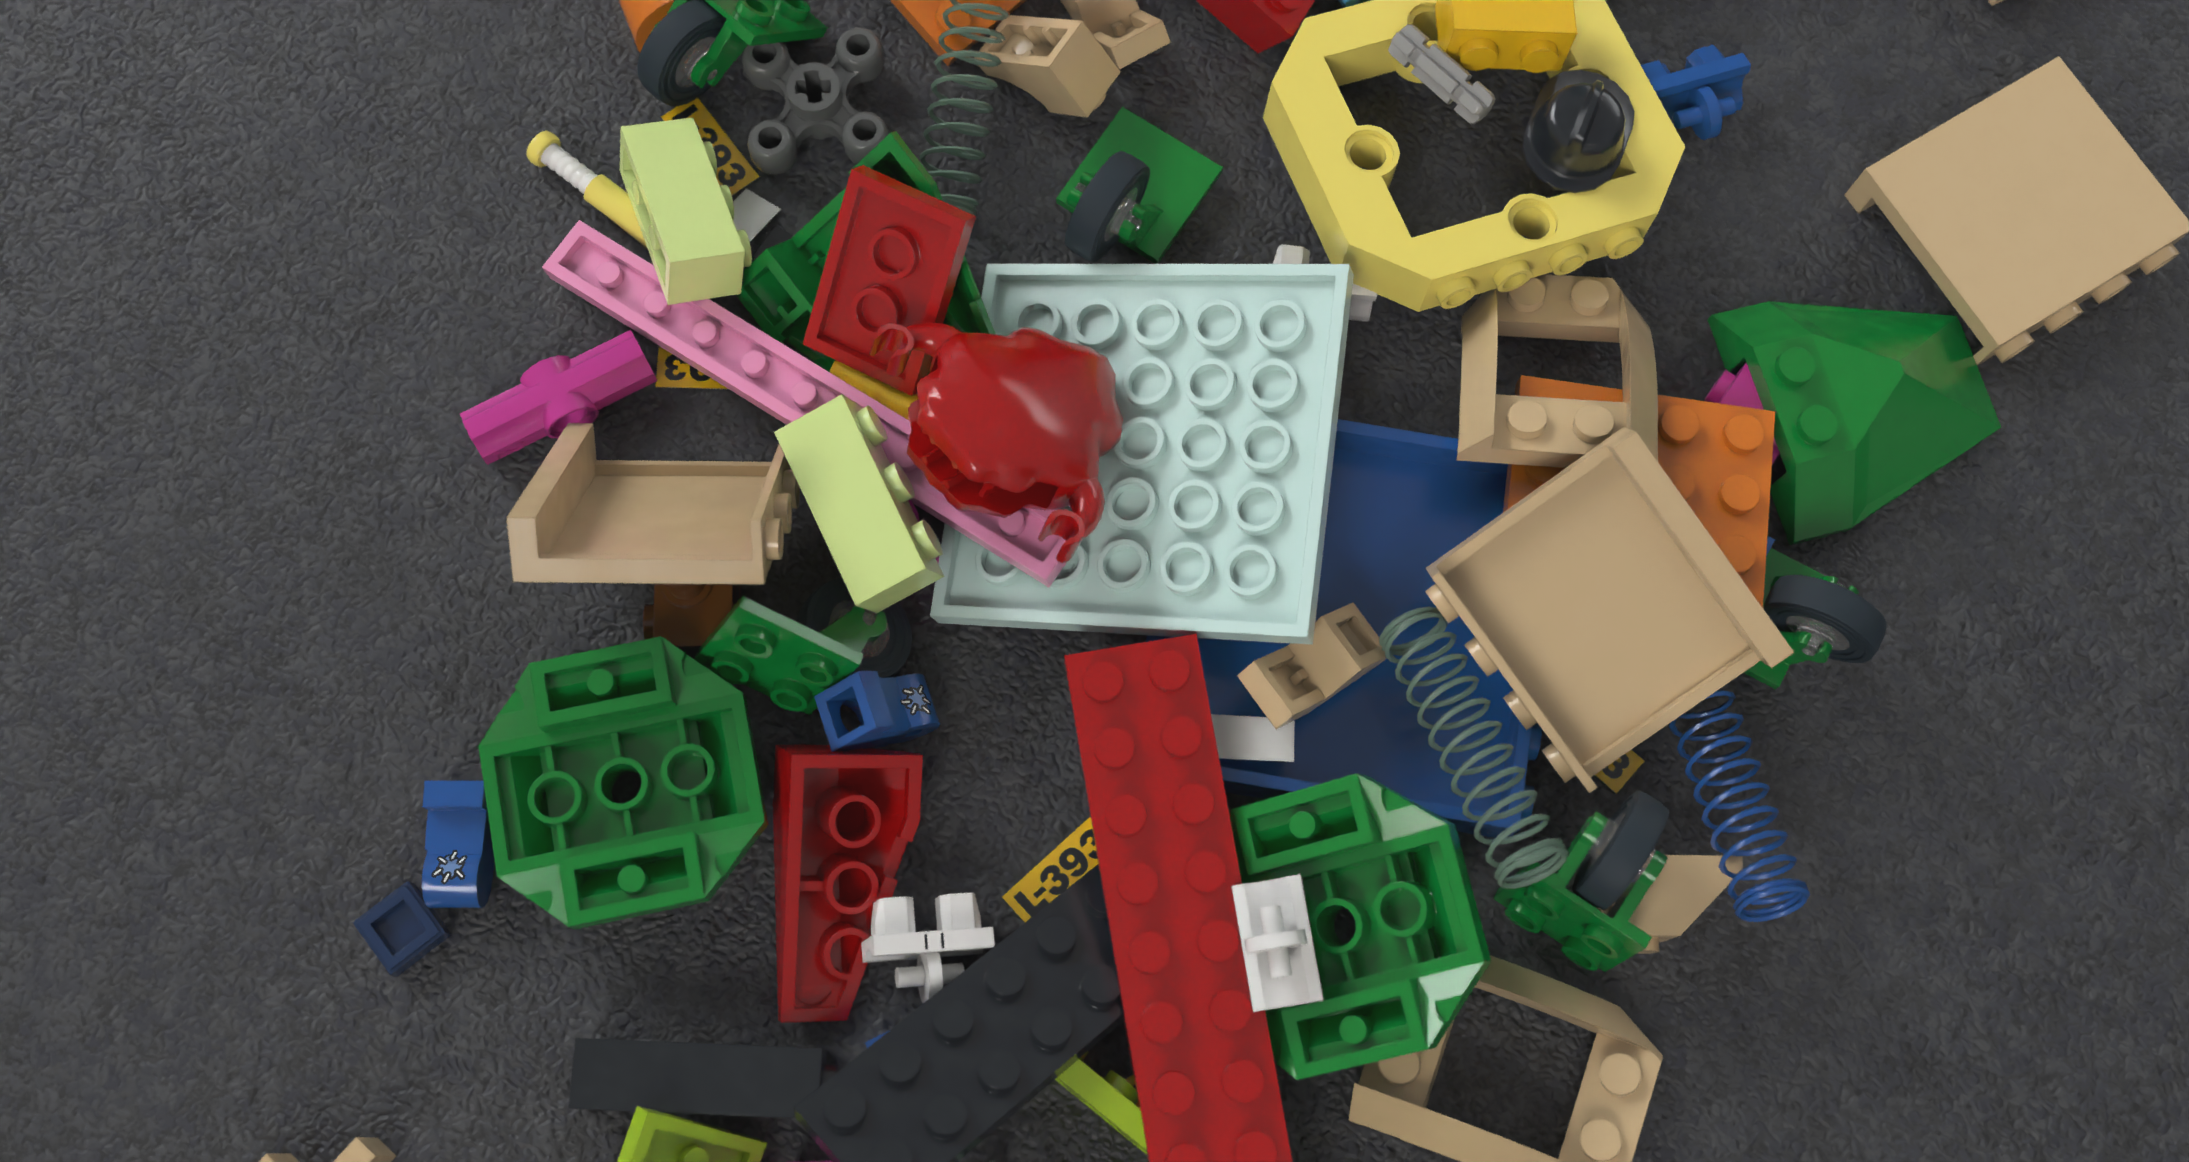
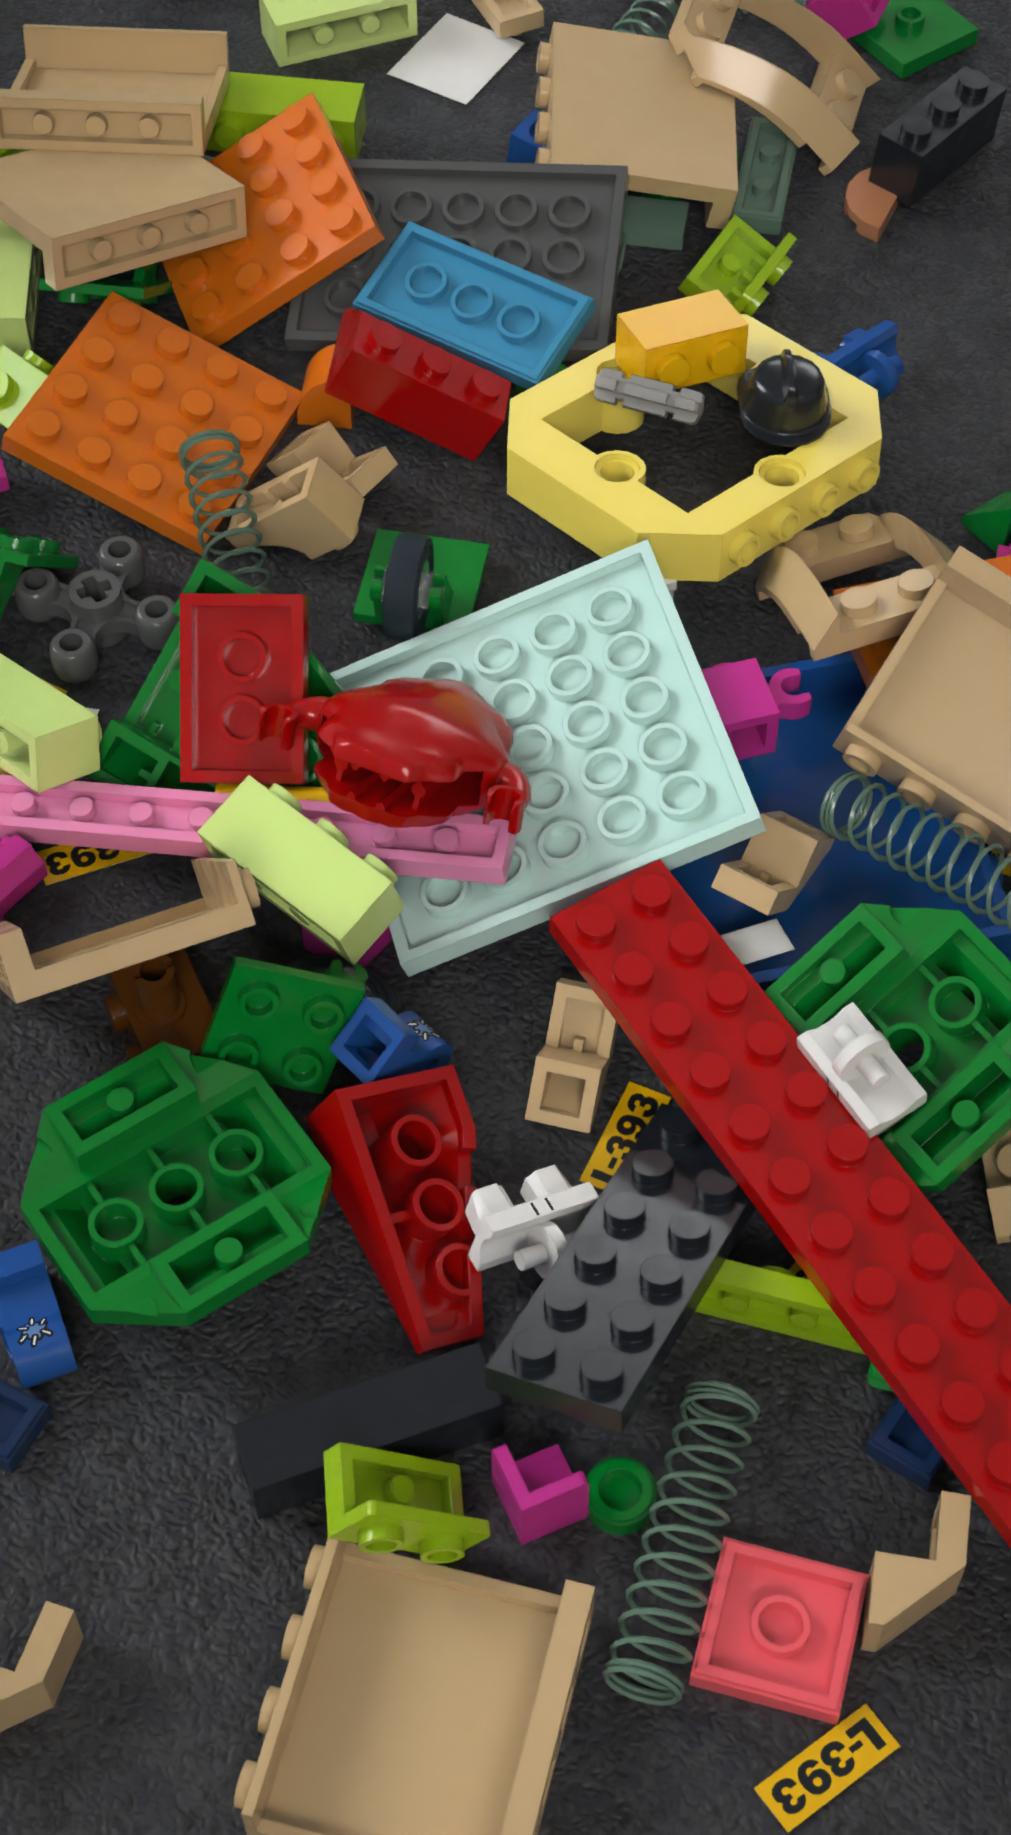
camera: 20 degrees left, 20 degrees down
(1039, 784) = (574, 1059): none -> tan slope
(1368, 482) = (753, 707): none -> dark pink brick

